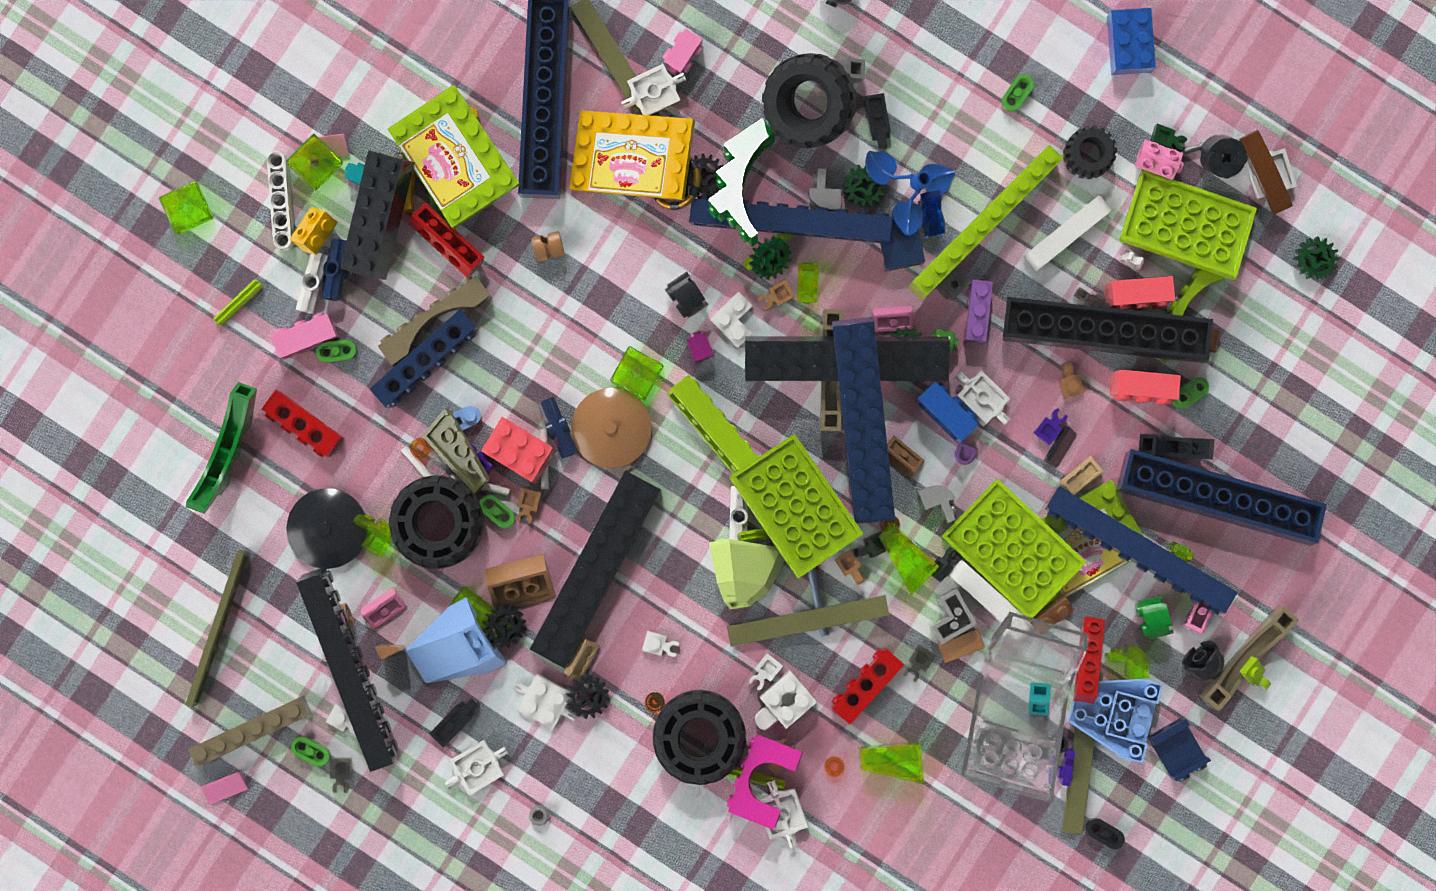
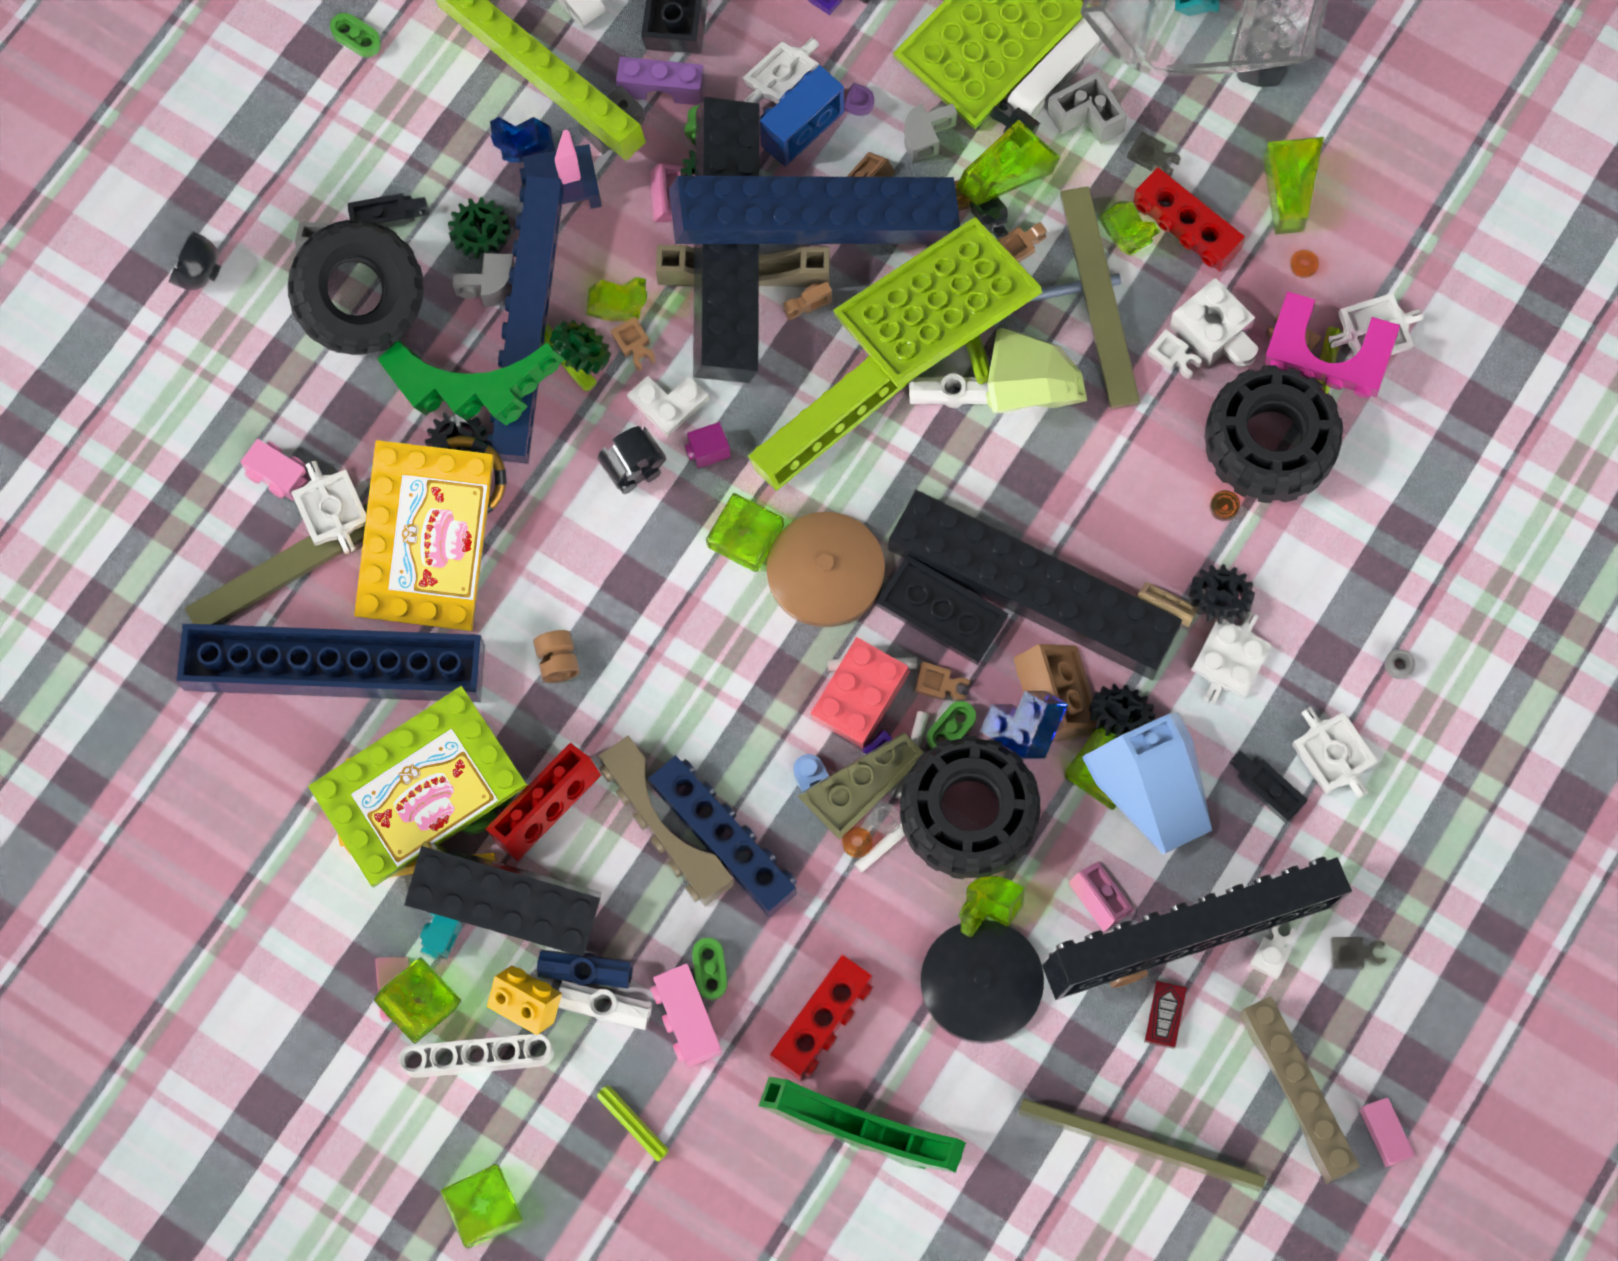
camera: 90 degrees left, 15 degrees down
(302, 647) = (1165, 1014): none -> tile
(311, 751) = (1324, 1000): bright green plate -> none
(388, 650) = (1166, 874): medium nougat slope -> none
(490, 560) = (1029, 726): none -> clear blue brick
(557, 427) = (825, 641): dark blue piece -> none
(580, 506) = (942, 609): none -> black plate
(656, 644) = (1140, 502): white plate -> none
(810, 420) = (811, 299): none -> medium nougat plate
(860, 642) = (1127, 228): none -> clear neon green brick
(905, 245) = (566, 160): none -> bright pink slope
(932, 177) = (474, 139): blue plant -> none
(961, 645) = (1129, 97): medium nougat slope -> none

